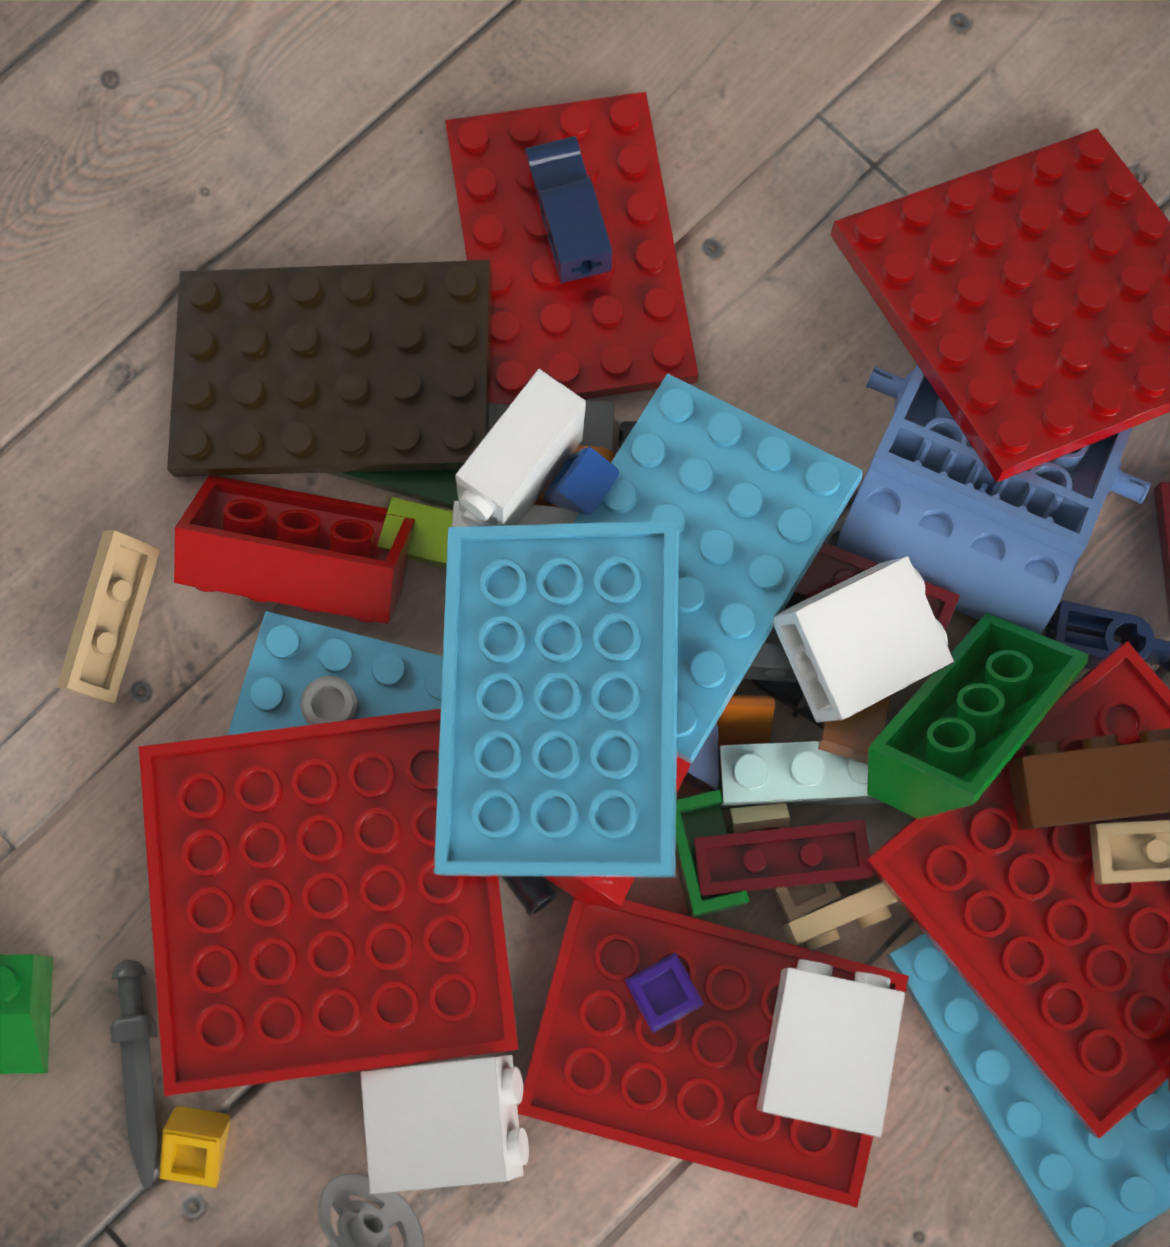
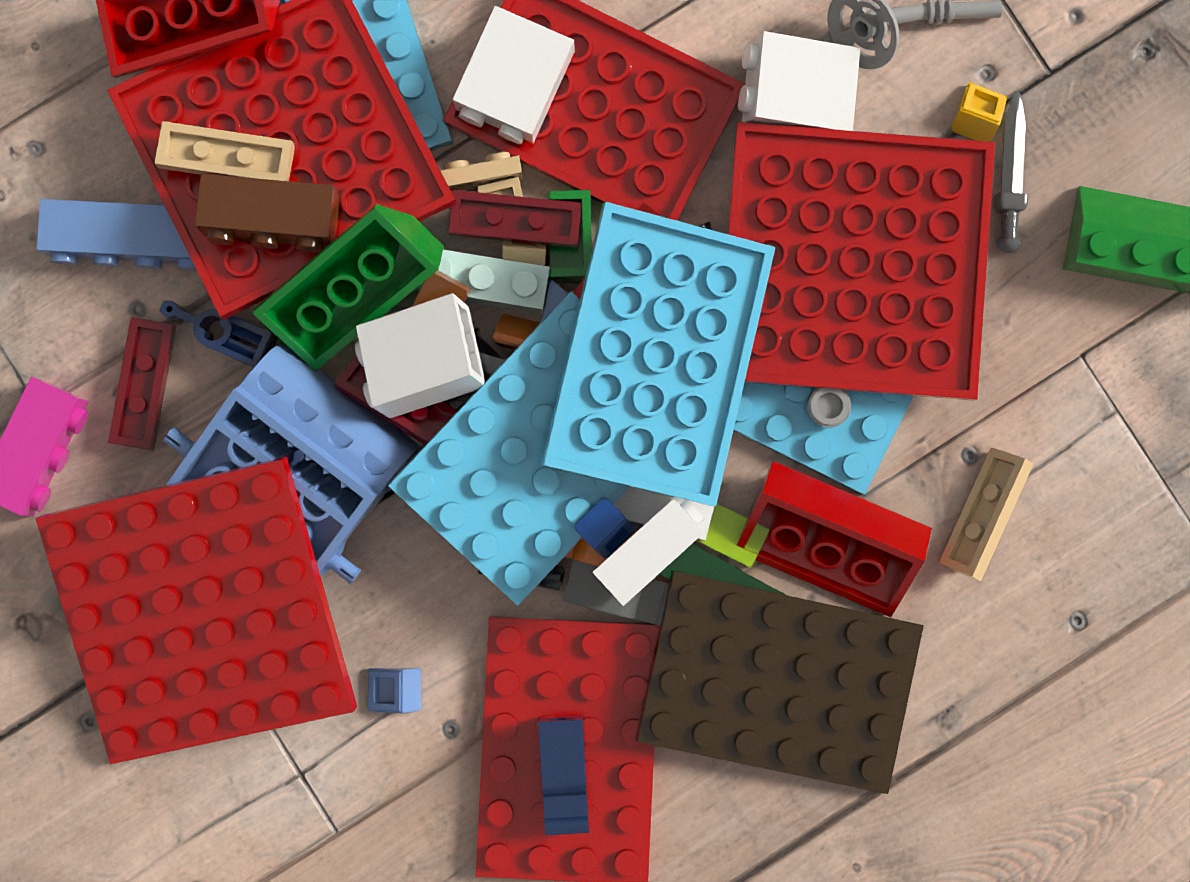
camera: 165 degrees left, 10 degrees up
(664, 992) = (623, 143): dark purple tile -> none
(789, 275) = (394, 690): none -> medium blue slope

